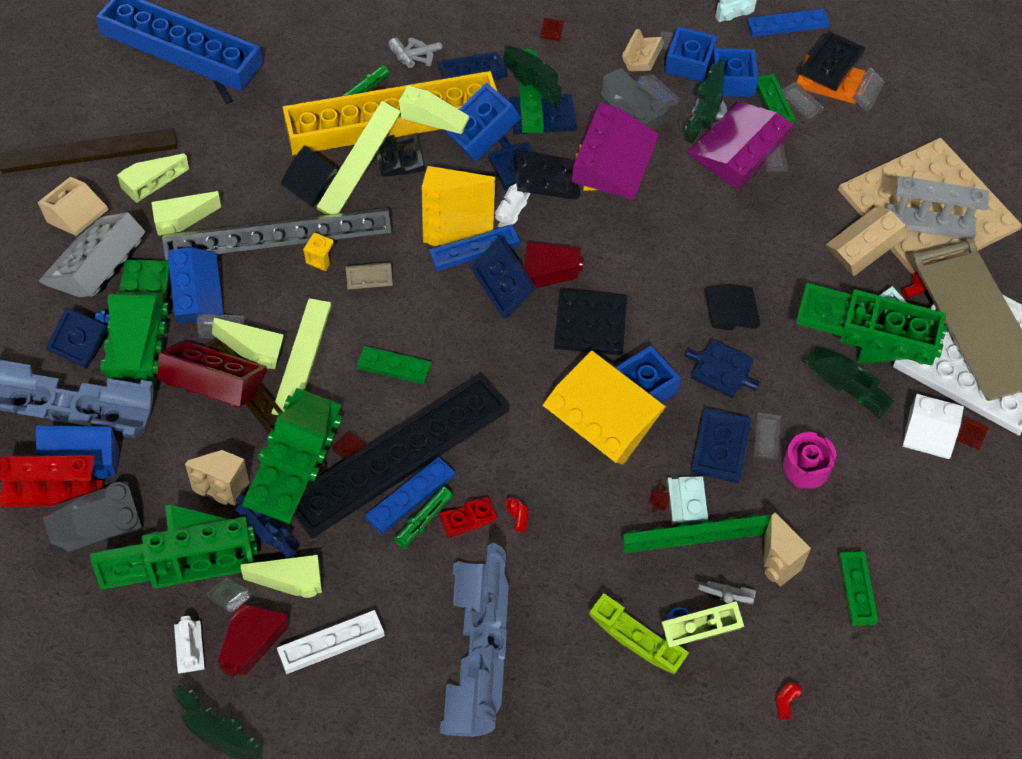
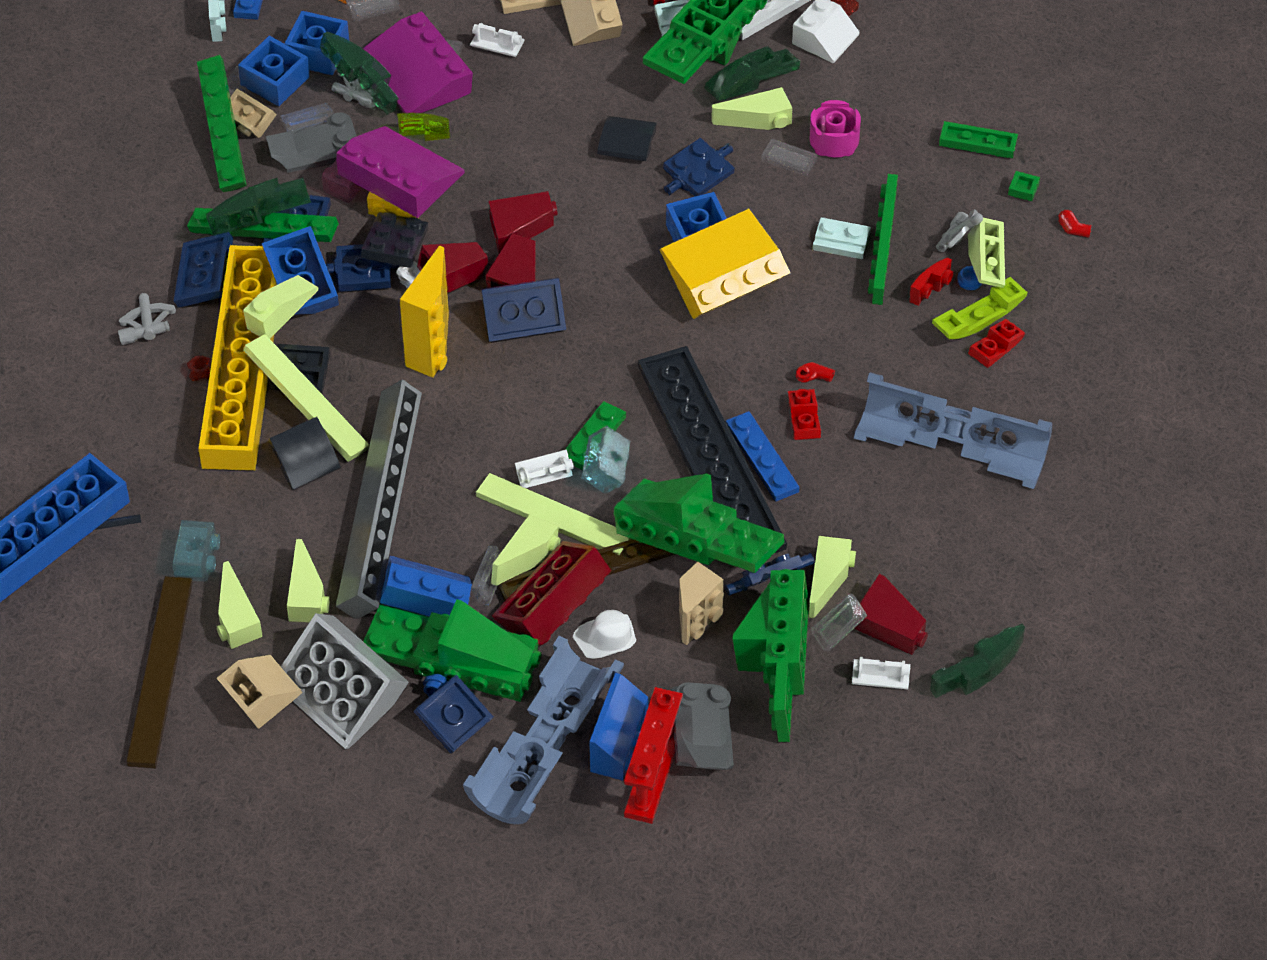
camera: 70 degrees left, 5 degrees down
(187, 426) = (605, 635): none -> white piece
(199, 137) = (195, 550): none -> clear light blue brick
(317, 251) = (423, 464): yellow bracket -> none
(330, 642) = (913, 553): white plate -> none
(343, 336) = (544, 469): none -> white hinge
(349, 370) = (606, 460): none -> clear light blue brick
(369, 81) = (176, 373): green pin -> none
(369, 275) = (468, 430): dark tan plate -> none
(417, 524) = (800, 455): green pin -> none
(470, 248) = (465, 331): blue plate -> none
(529, 217) = (462, 261): none -> dark red slope
(552, 29) = (170, 185): clear red plate -> none
(590, 321) = (599, 258): black plate -> none
(606, 253) = (521, 215): none -> dark red slope
(611, 663) = (997, 343): none -> red slope
(619, 37) = (221, 124): none -> green plate
(659, 499) = (839, 252): clear red plate -> none
(668, 589) = (931, 279): none -> red slope
(680, 166) = (430, 125): none -> clear neon green slope
(721, 445) = (789, 193): dark blue plate -> none
(773, 97) = (367, 24): green plate -> none
(783, 551) = (929, 175): tan slope -> none
(799, 189) = (500, 42): none -> white hinge
(809, 399) = (757, 111): none -> yellowish green slope
(815, 642) = (1024, 186): none -> green plate

